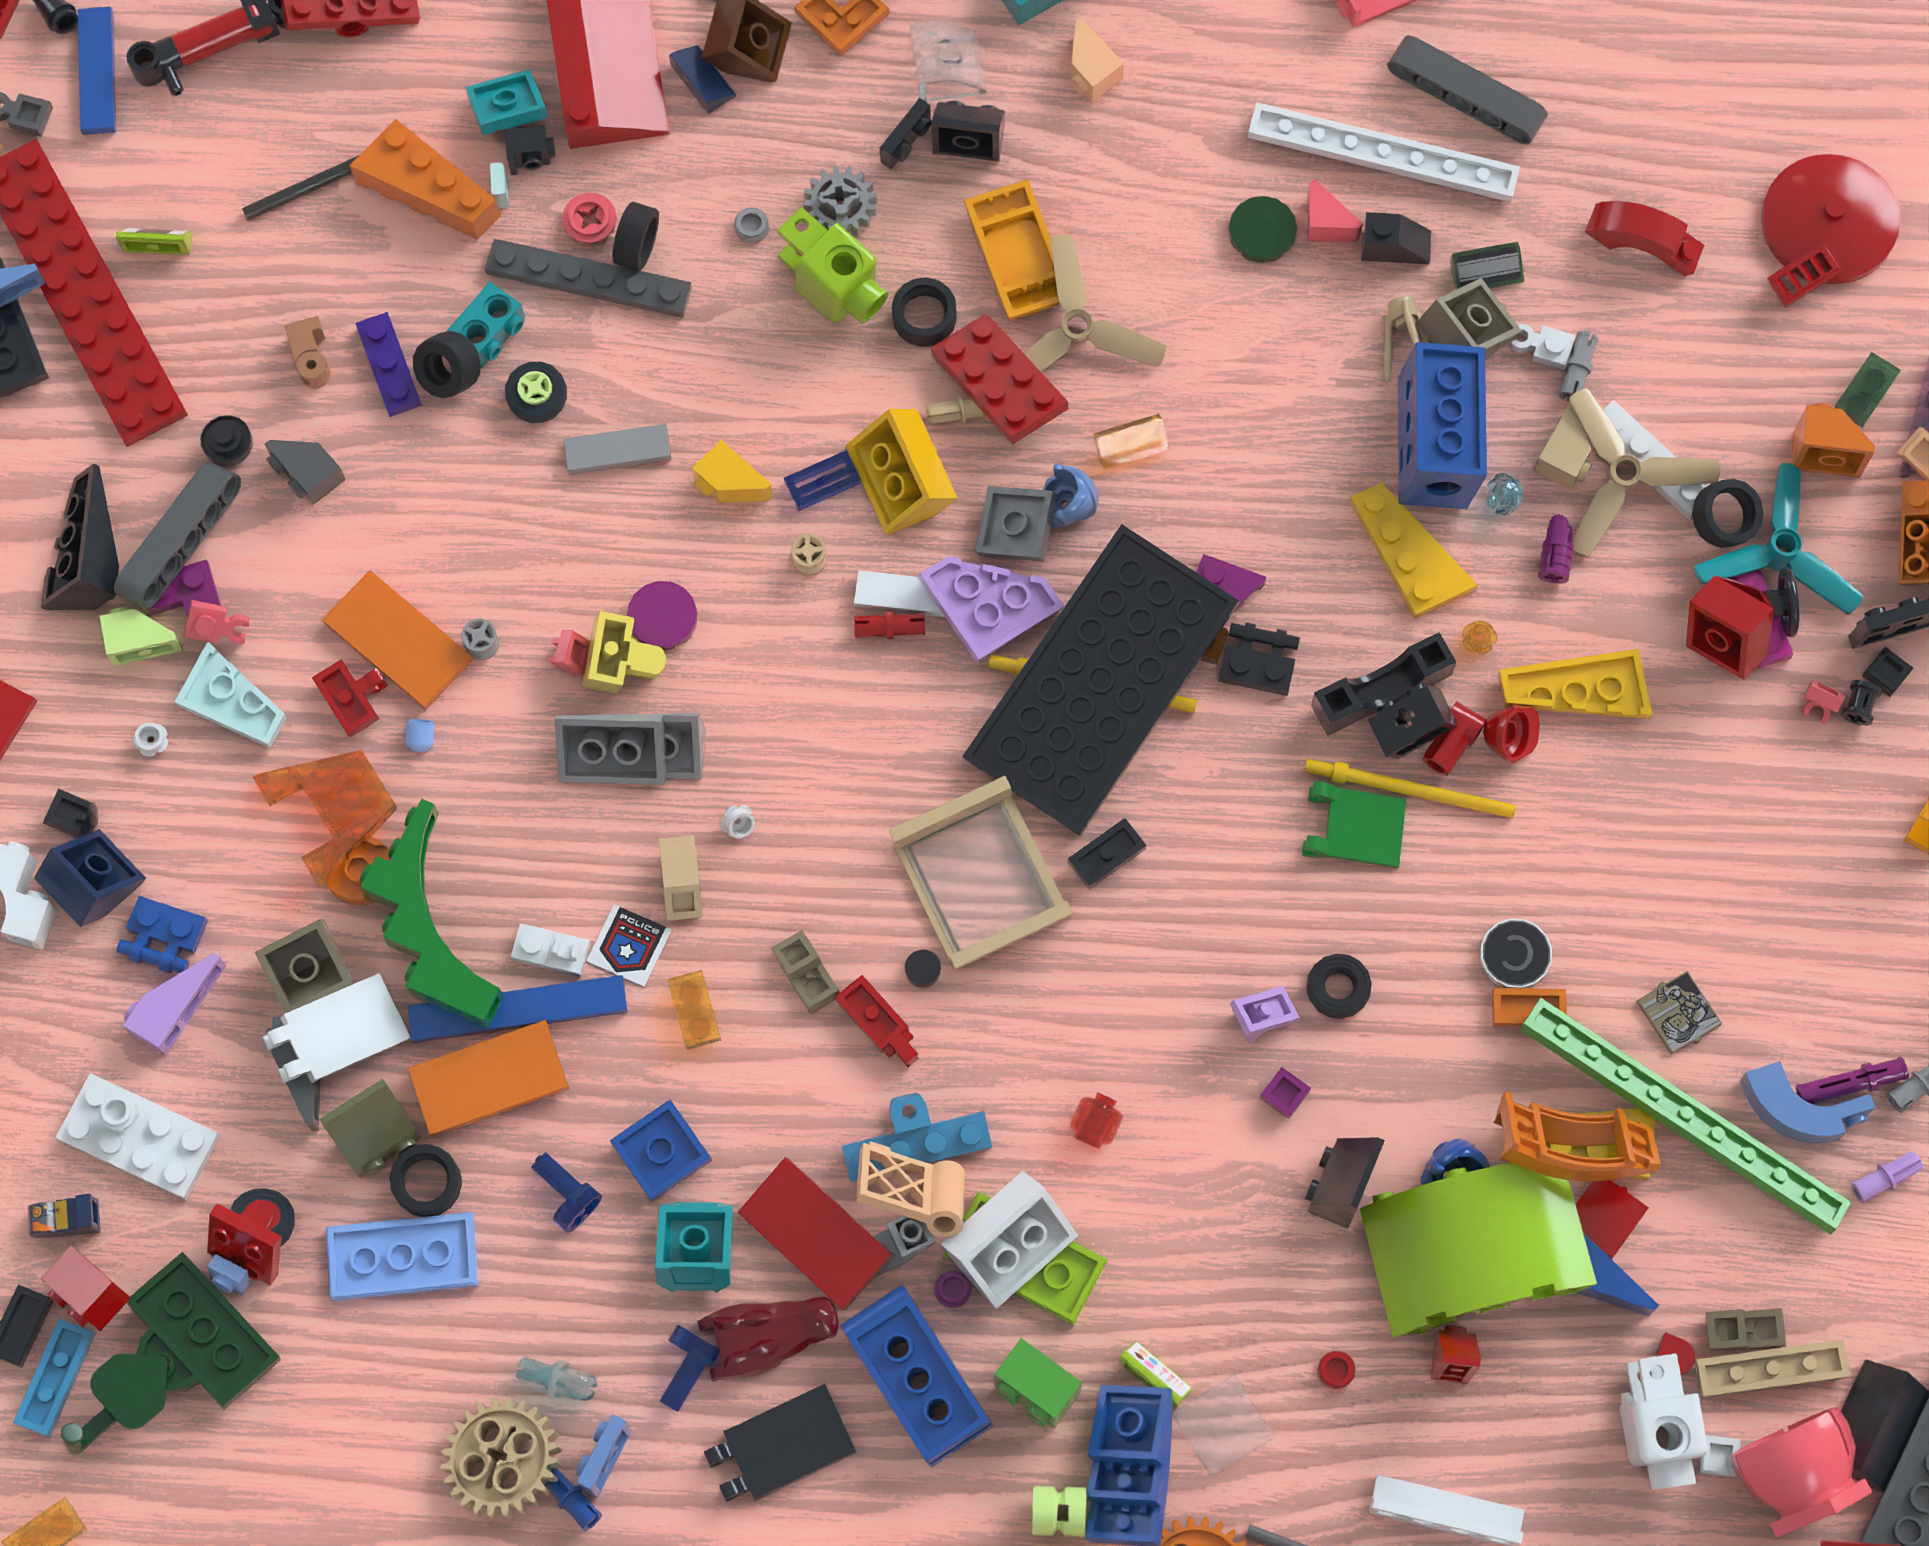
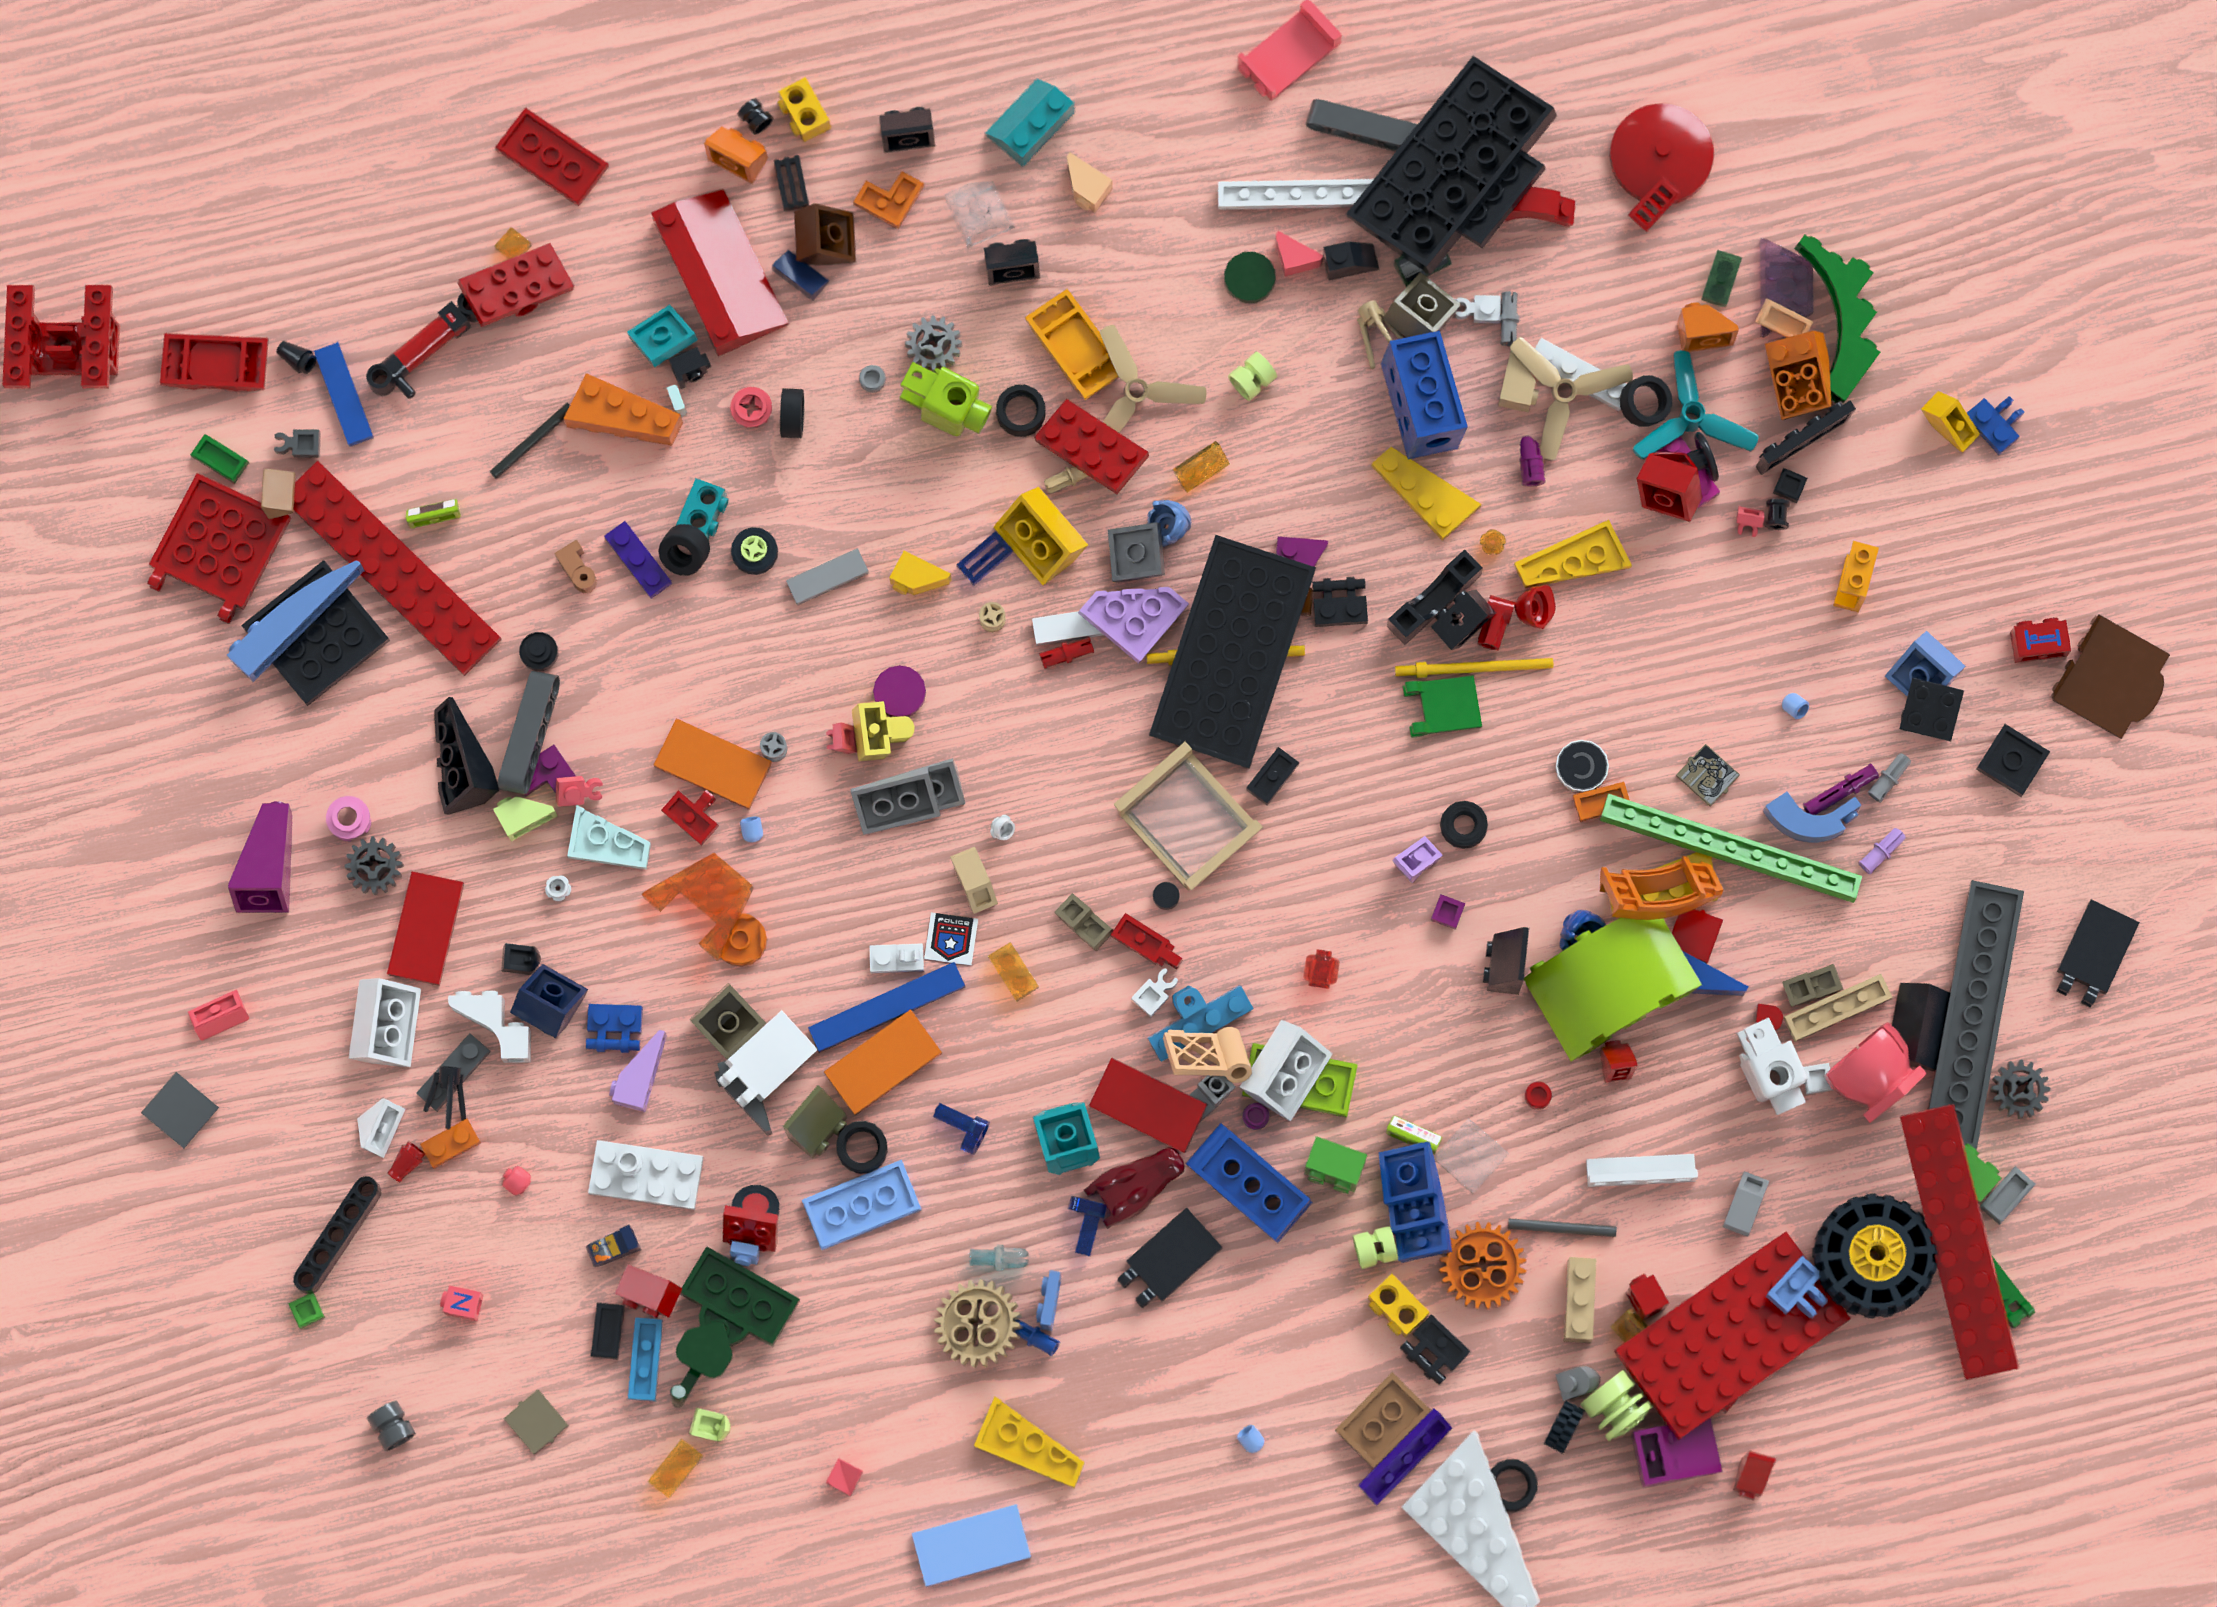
camera: 15 degrees left, 5 degrees up
(108, 1490) = (710, 1425): none -> yellowish green plate
(307, 465) = (605, 654): dark grey slope -> none
(401, 886) = (825, 999): green arch -> none
(588, 278) = (764, 453): dark grey plate -> none
(660, 1150) = (1021, 1078): blue plate -> none
(865, 1093) = (1152, 995): none -> white plate
(900, 141) = (963, 287): black plate -> none
(1241, 346) = (1252, 376): none -> yellowish green wheel
(1504, 494) = (1482, 430): clear light blue plate -> none
(1564, 162) = (1457, 168): none -> black slope
(1816, 951) = (1794, 702): none -> light blue piece

